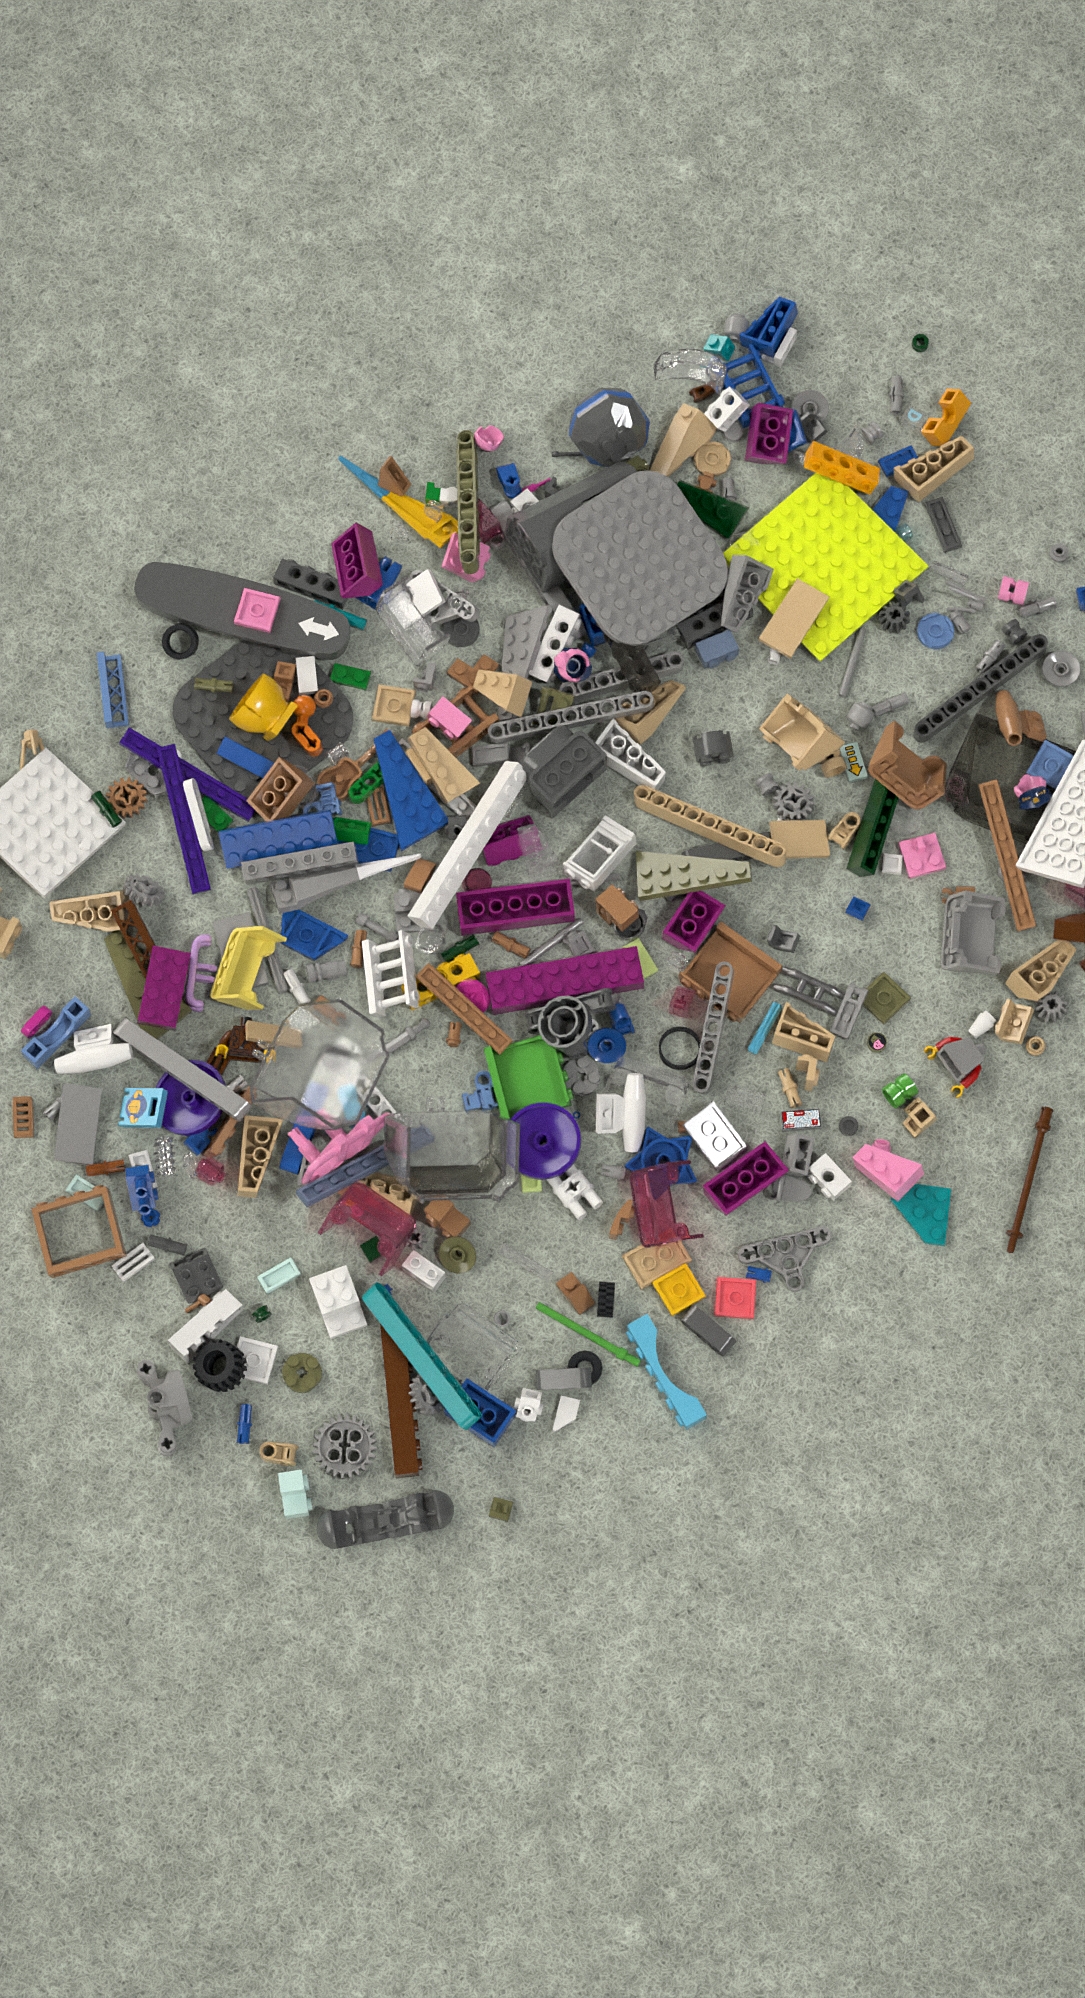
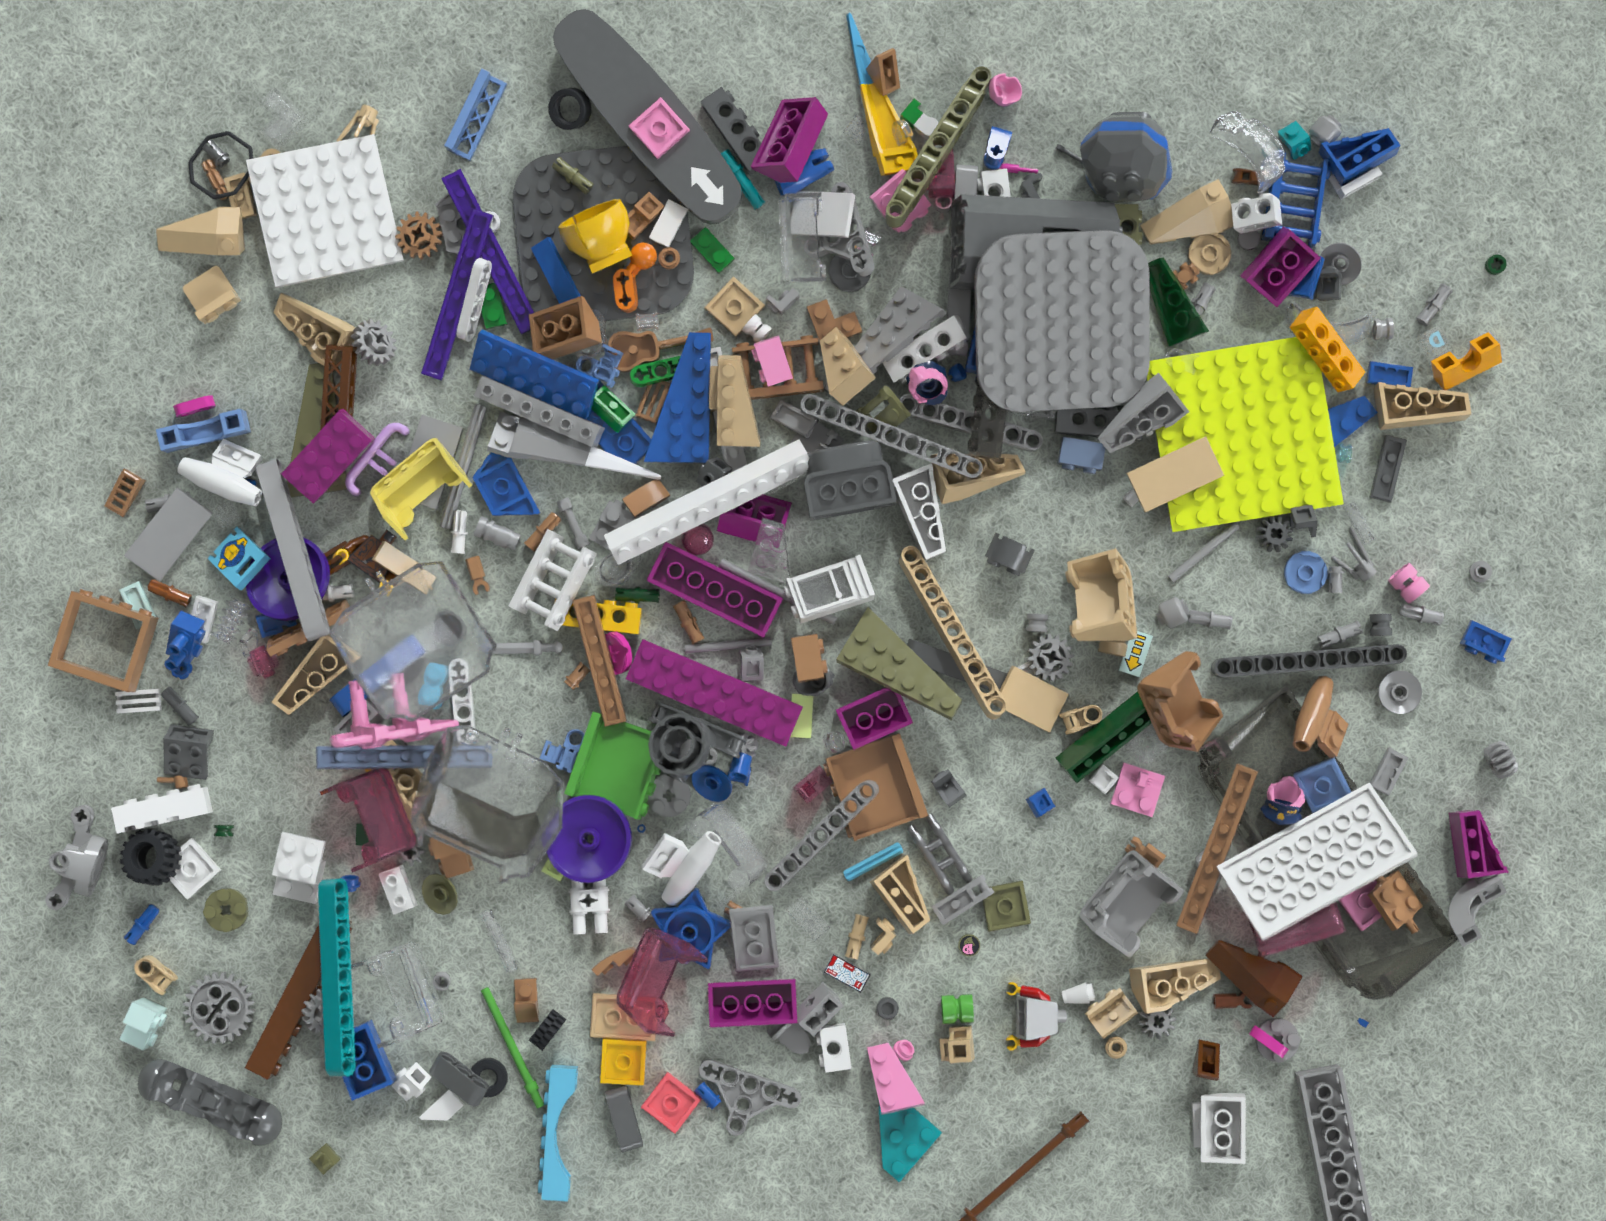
camera: 30 degrees right, 15 degrees up
(106, 809) = (390, 252): dark green pin -> none
(279, 1275) = (264, 802): light aqua tile -> none
(678, 1029) = (758, 835): black tyre -> none

